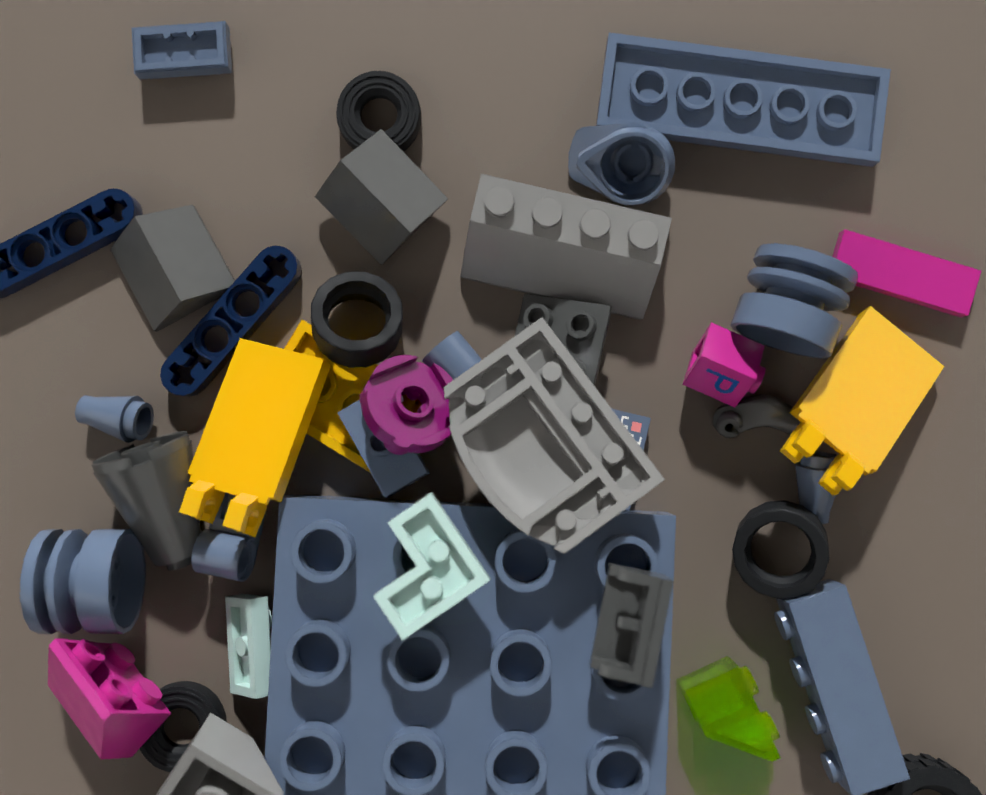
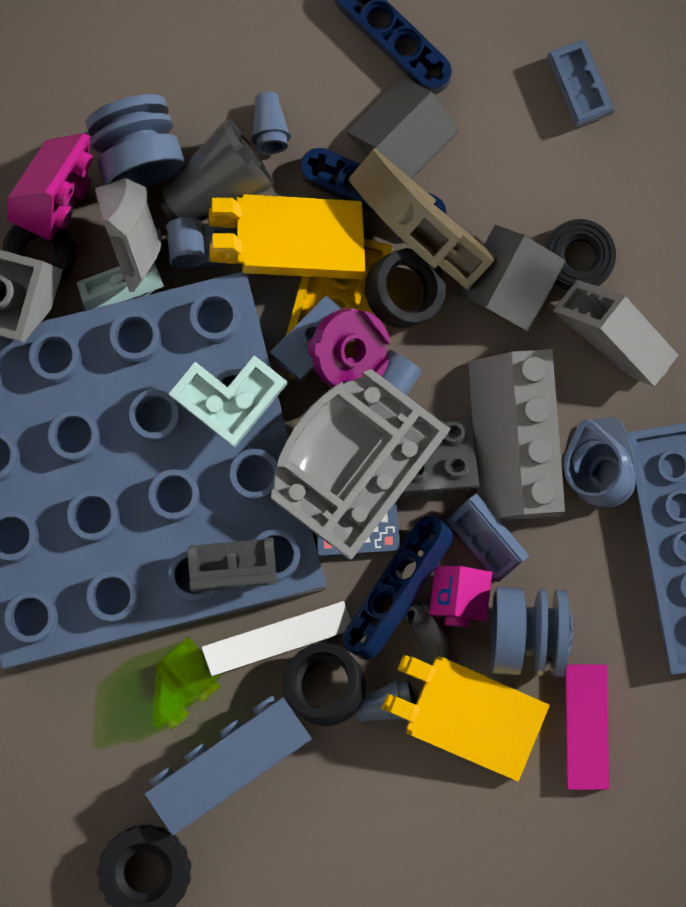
camera: 70 degrees right, 5 degrees down
(185, 621) = (130, 228): none -> light grey slope
(282, 279) = (418, 221): none -> dark tan slope
(479, 96) = (617, 331): none -> light grey slope
(667, 315) = (487, 537): none -> sand blue plate
(700, 429) = (392, 584): none -> dark blue beam
(711, 588) = (276, 638): none -> white sticker

